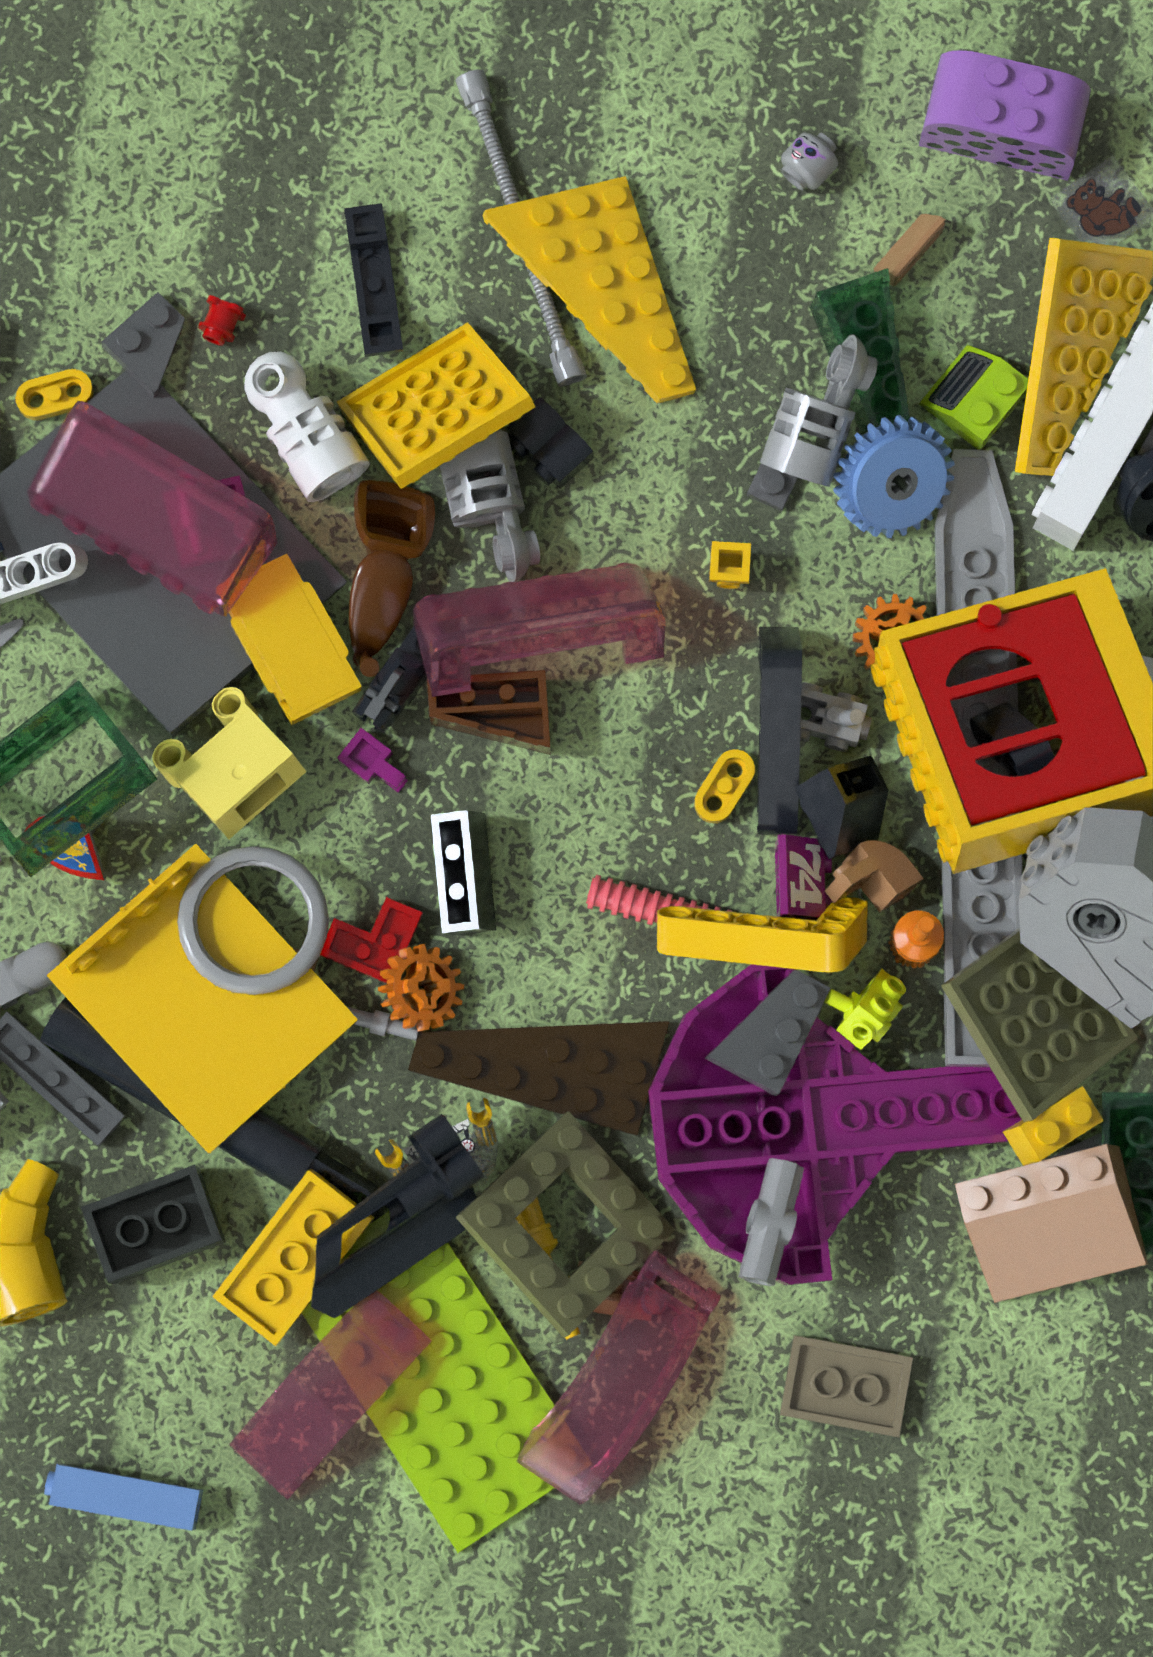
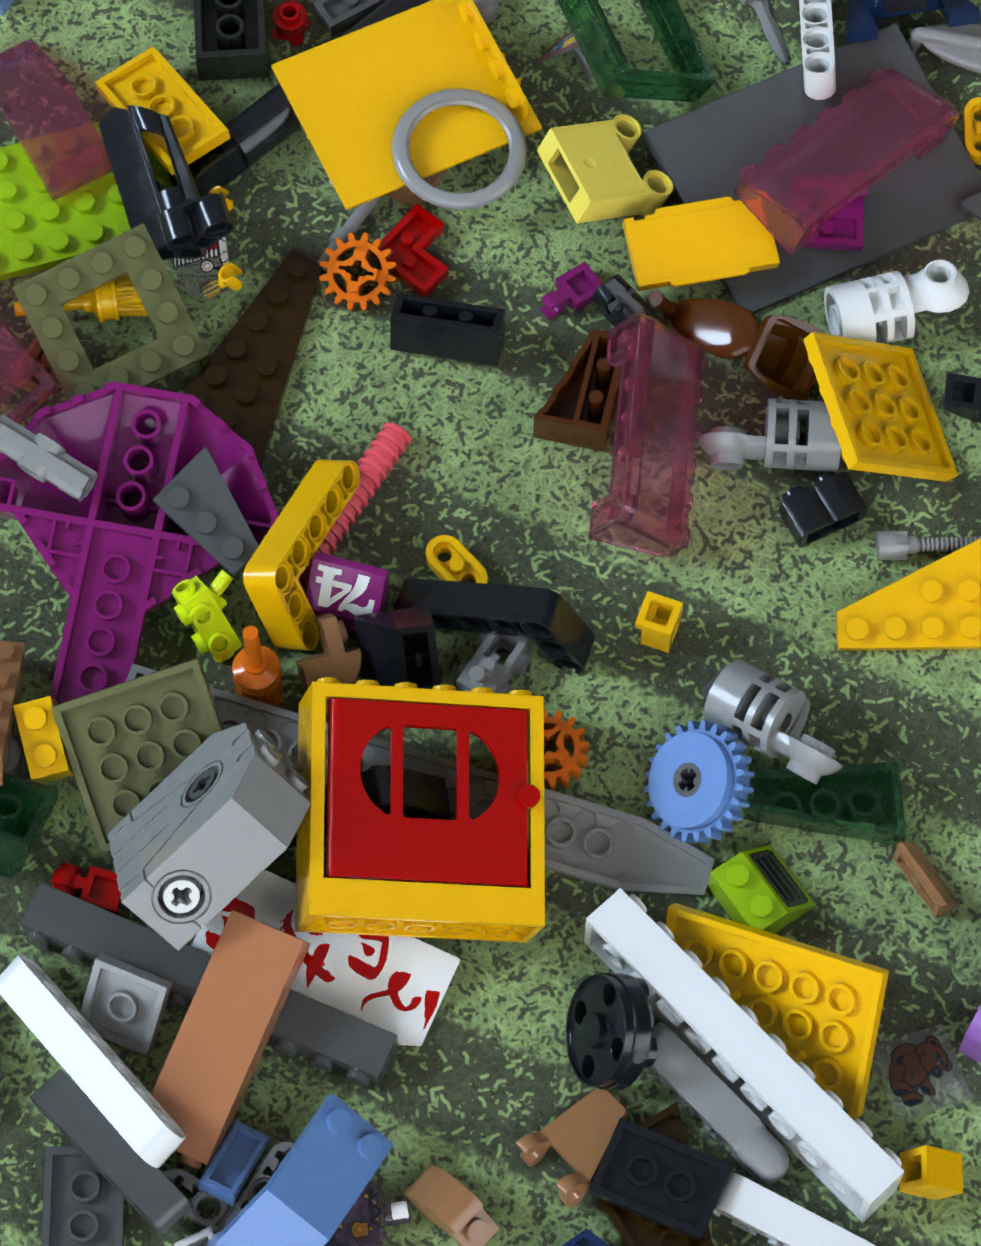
camera: 105 degrees right, 15 degrees down
(136, 1173) = (290, 22): none -> red brick

